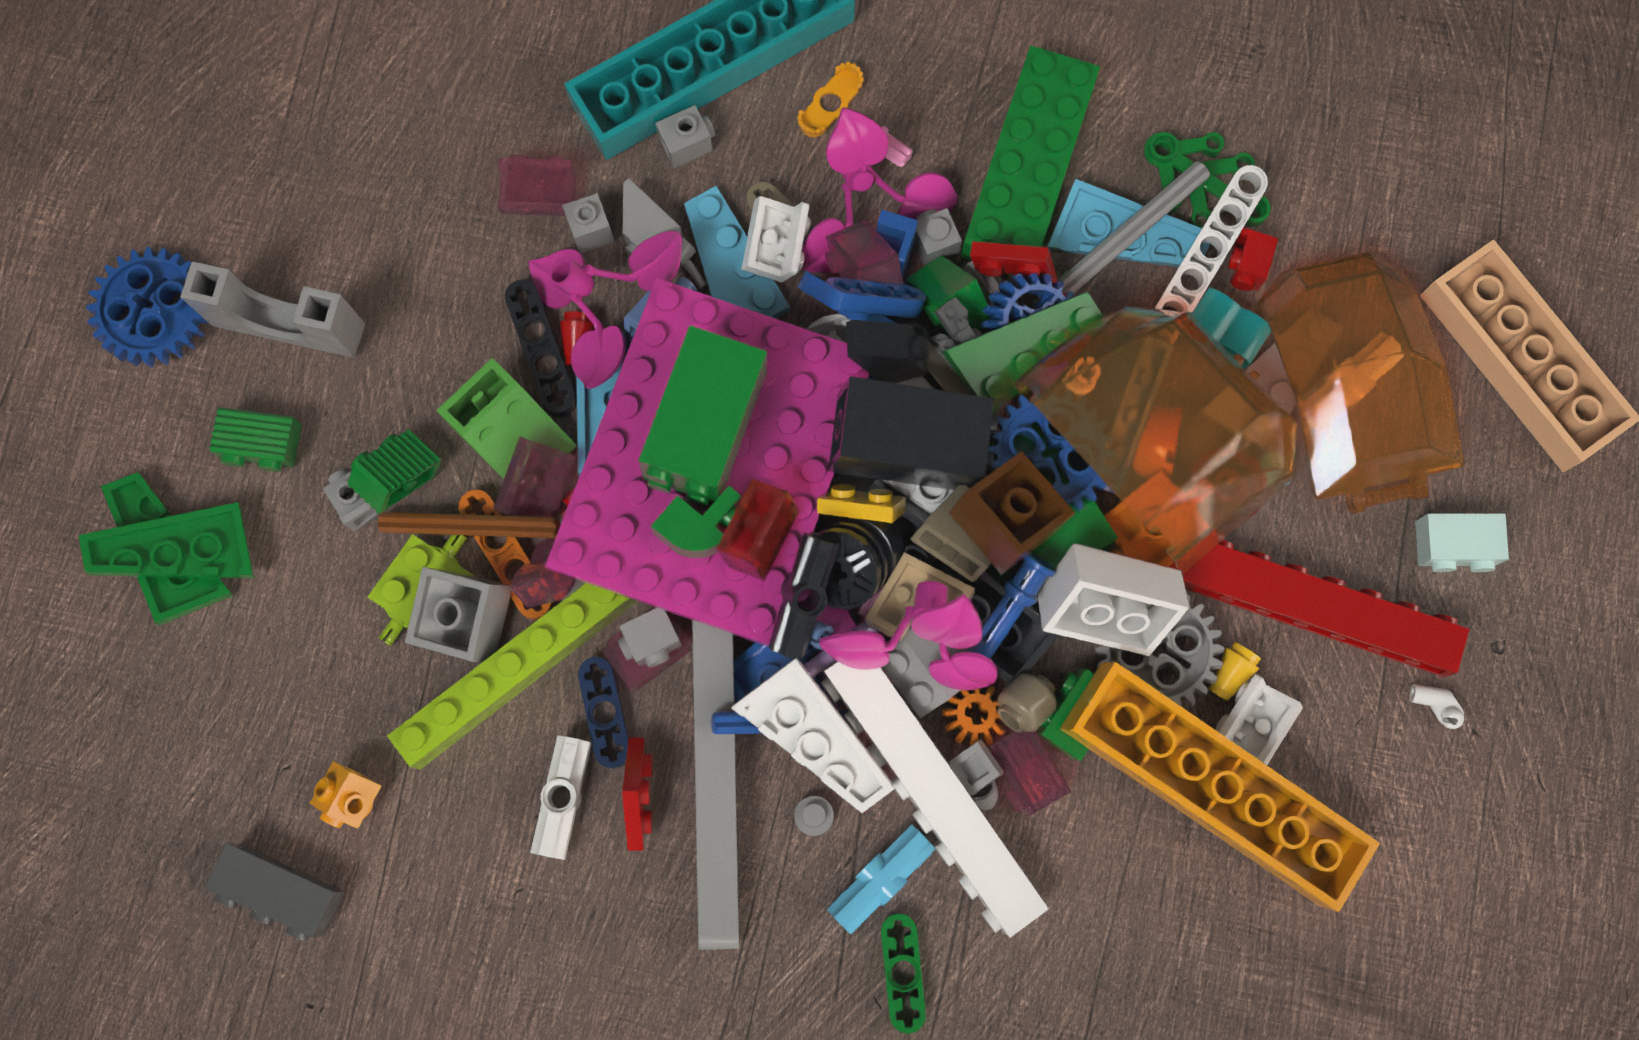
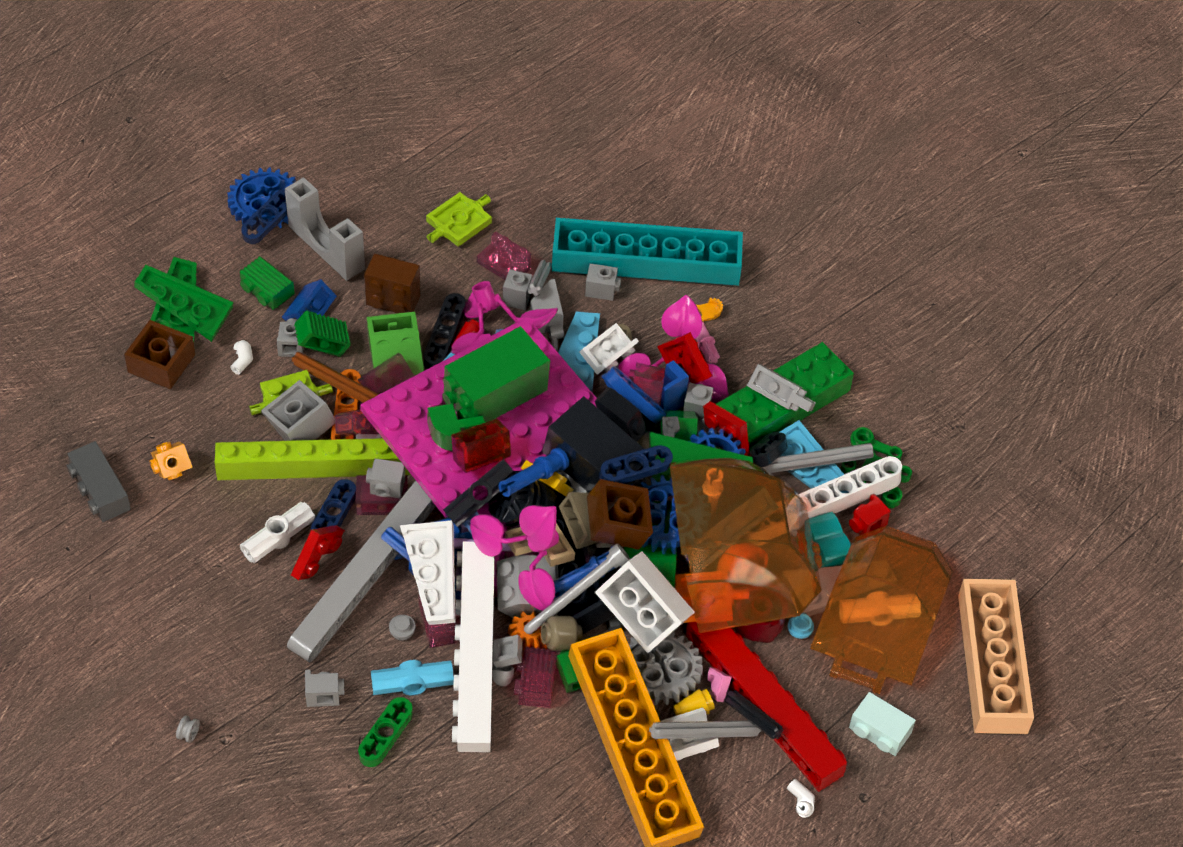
camera: 30 degrees right, 25 degrees down
(167, 327) = (265, 226): none -> dark blue beam
(203, 649) = (160, 354): none -> reddish brown brick
(313, 566) = (245, 356): none -> white arm
(335, 428) = (313, 298): none -> blue panel
(427, 332) = (392, 284): none -> reddish brown brick
(429, 163) = (459, 219): none -> lime plate
(607, 188) = (539, 277): none -> light grey axle
(787, 974) = (323, 689): none -> light grey brick
(862, 511) = (542, 468): none -> blue pin
(887, 183) = (686, 351): none -> red plate
(1013, 414) = (644, 457): none -> dark blue beam
(1040, 160) = (779, 389): none -> light grey hinge
(1051, 576) = (616, 557): none -> light grey piece
(1066, 251) = (768, 449): none -> black beam
(1240, 619) = (719, 683): none -> bright pink tile
(1288, 712) = (703, 729): none -> light grey axle
(1317, 639) = (754, 714): none -> black axle

